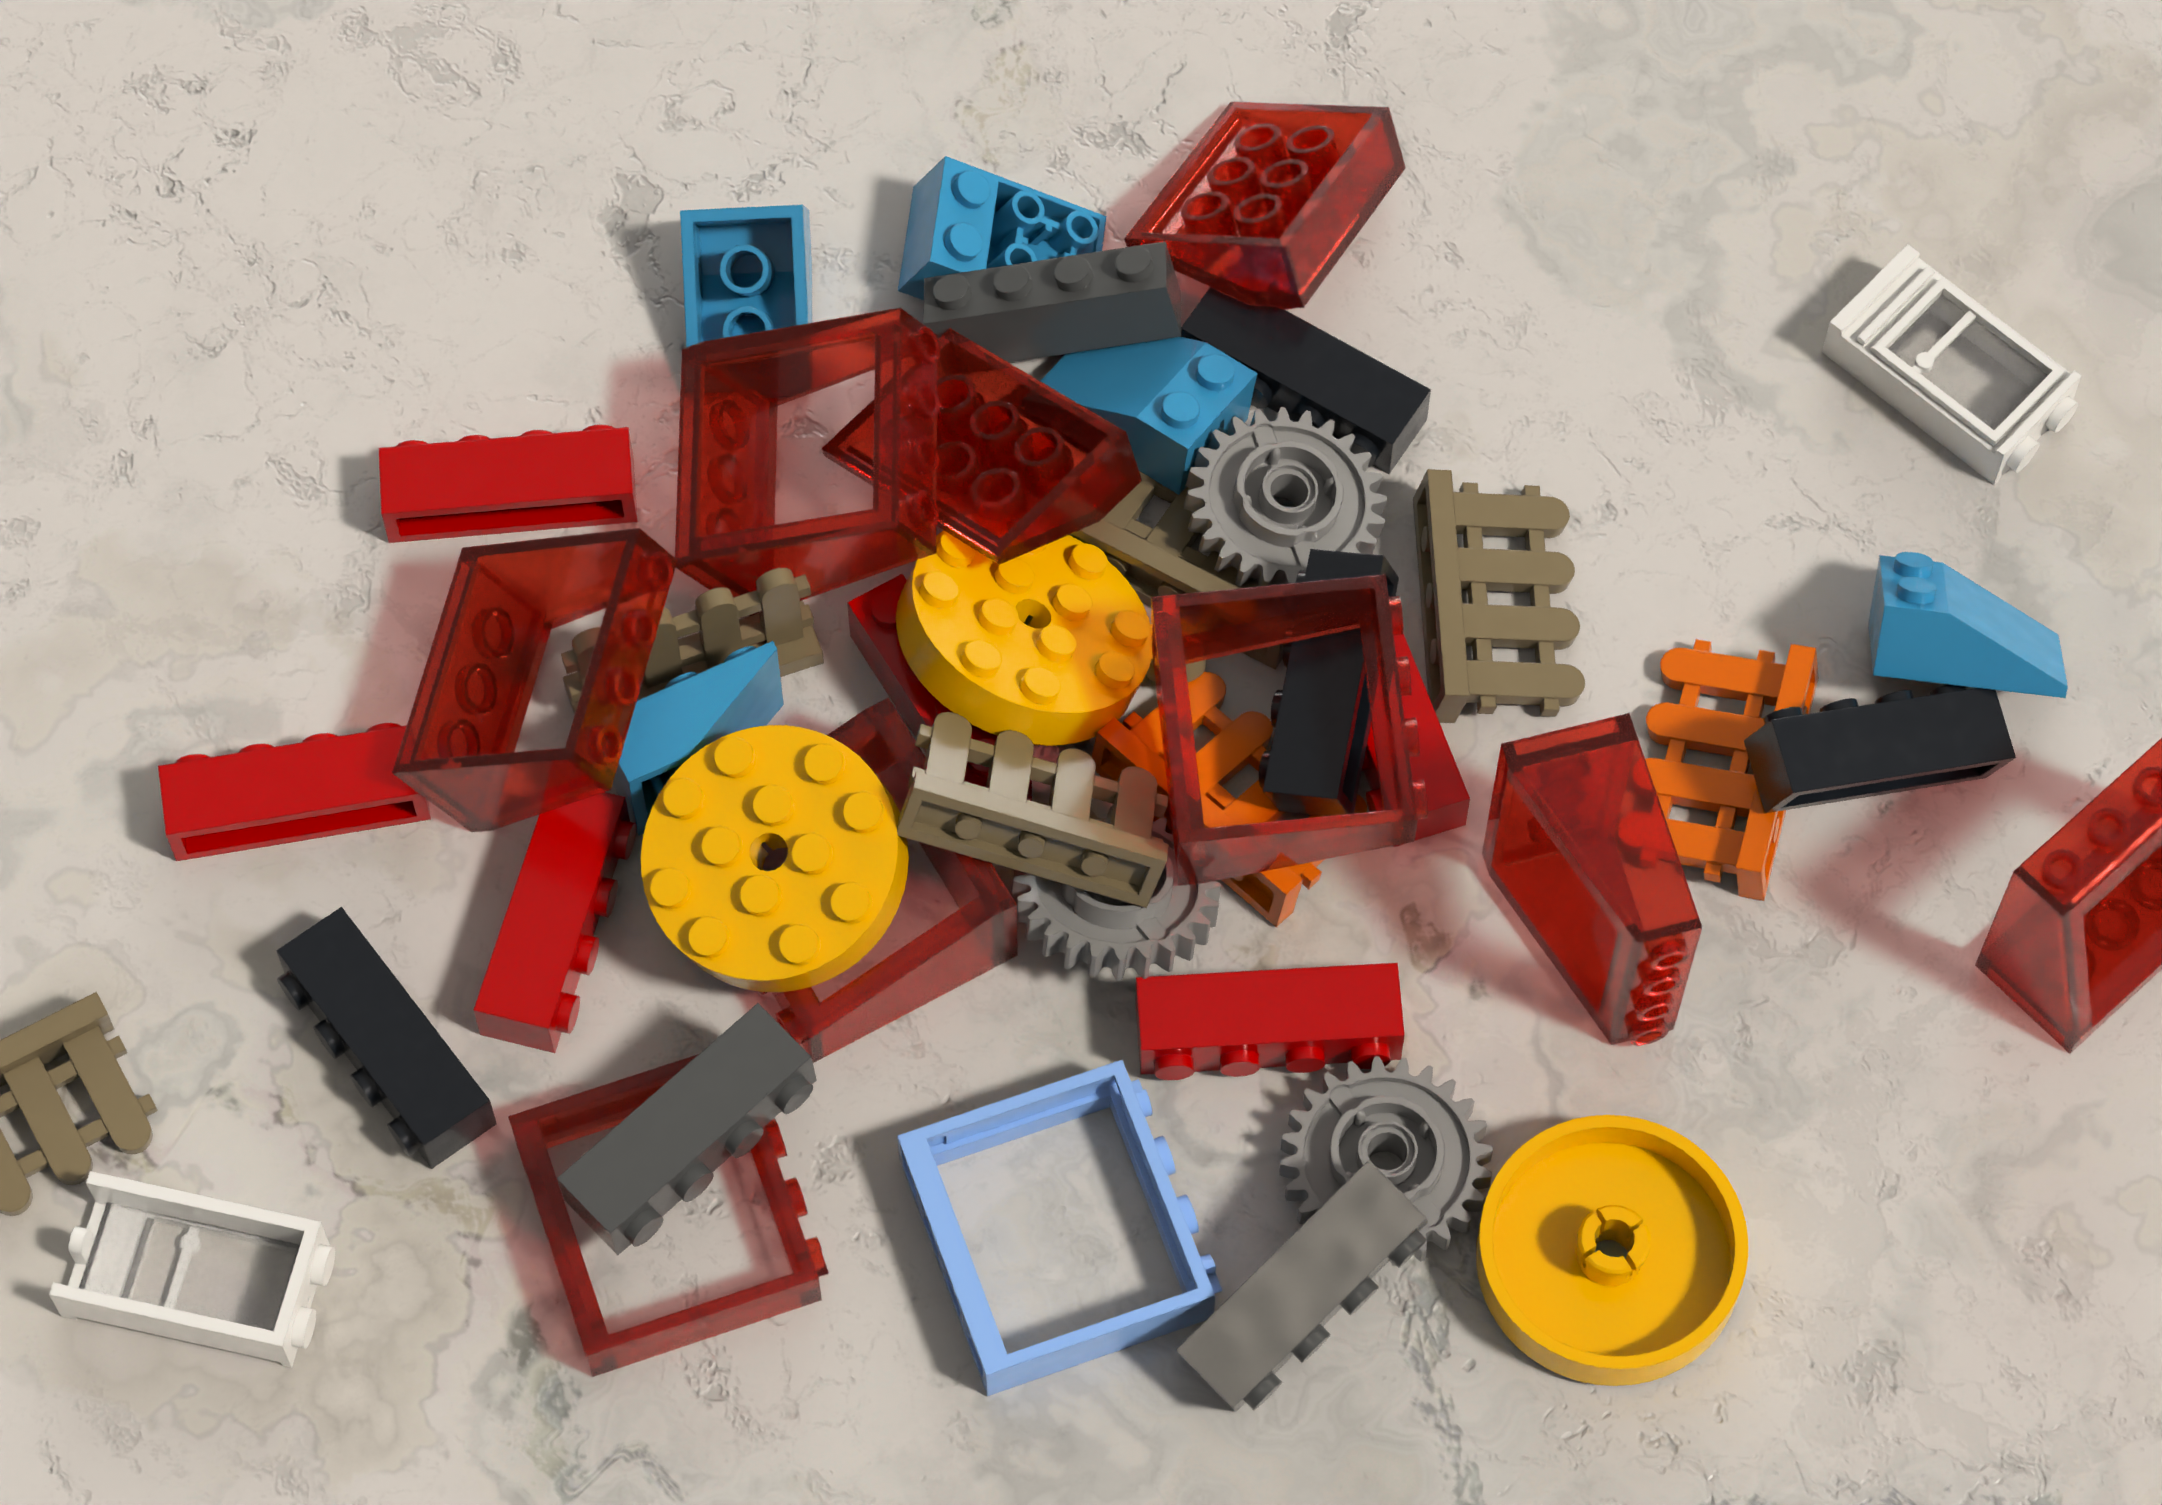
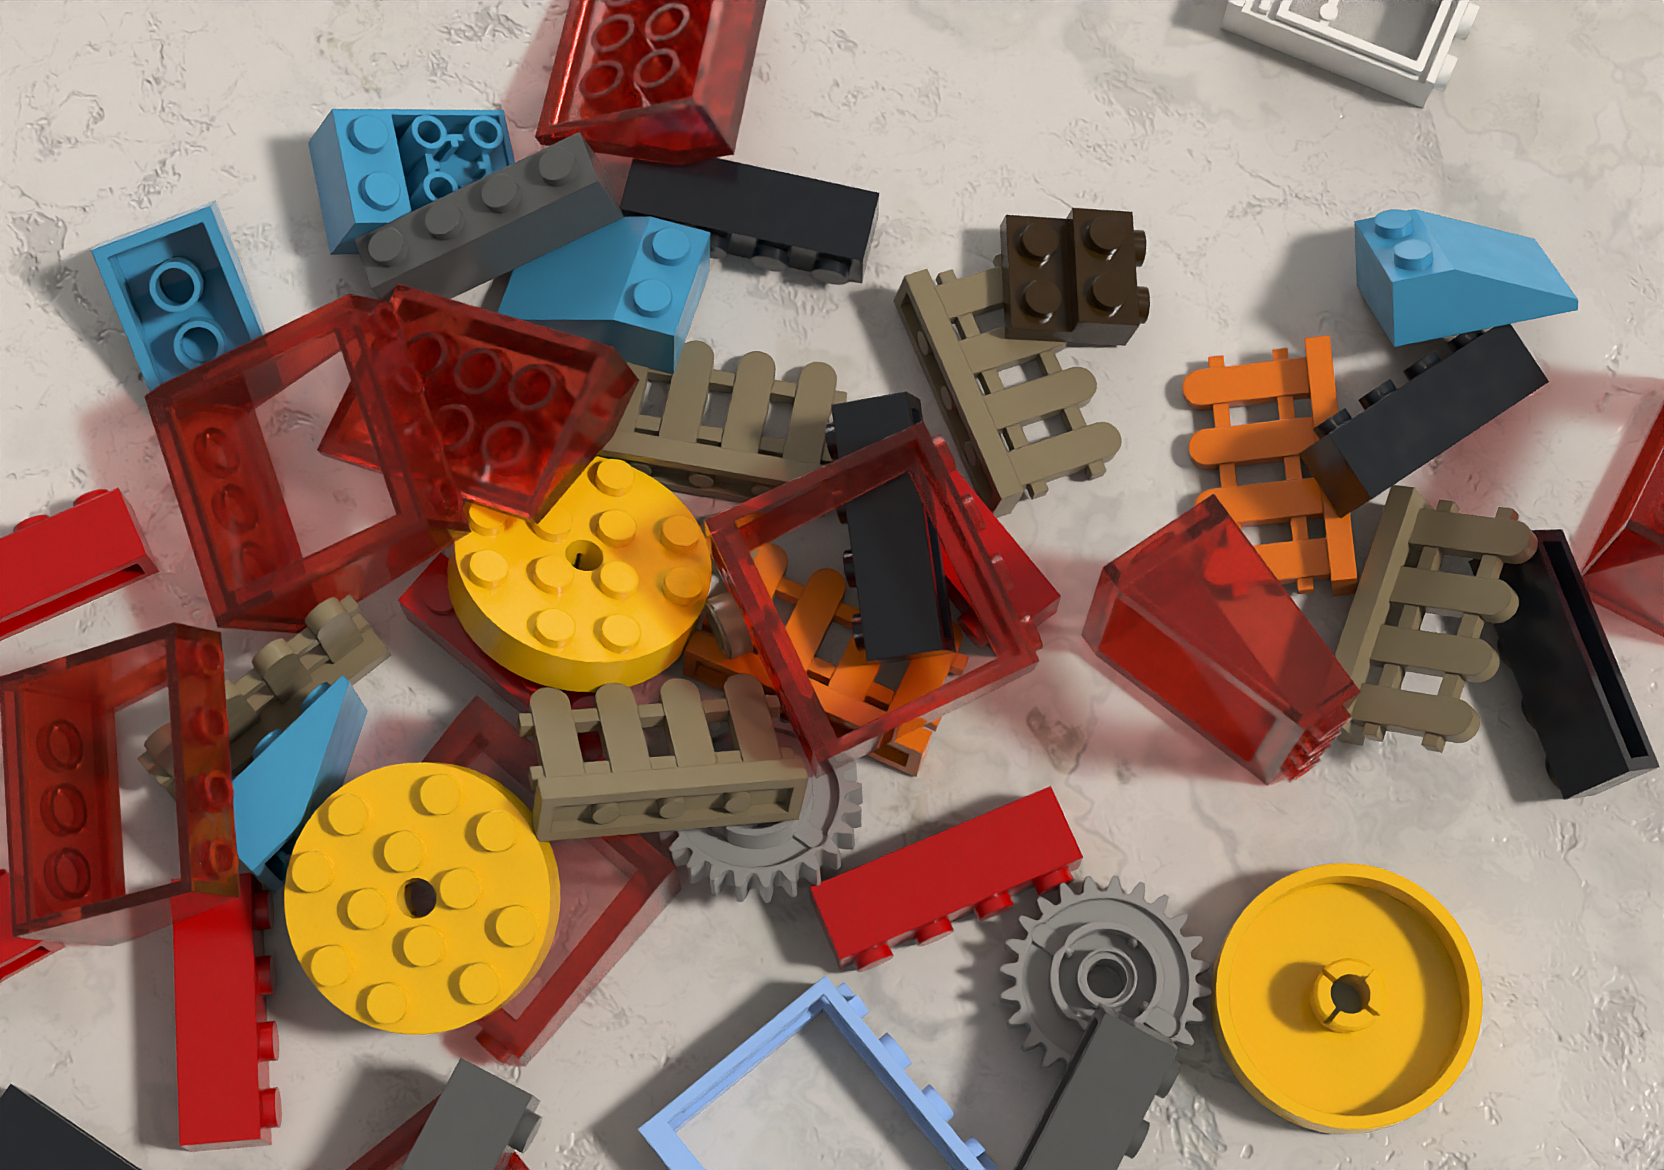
camera: 20 degrees left, 10 degrees up
(1144, 719) = (728, 626): none -> dark tan tile
(1289, 460) = (786, 310): light grey gear -> none
(1591, 526) = (1073, 277): none -> dark brown plate
(1775, 924) = (1389, 605): none -> dark tan fence
(1935, 1017) = (1569, 675): none -> black brick

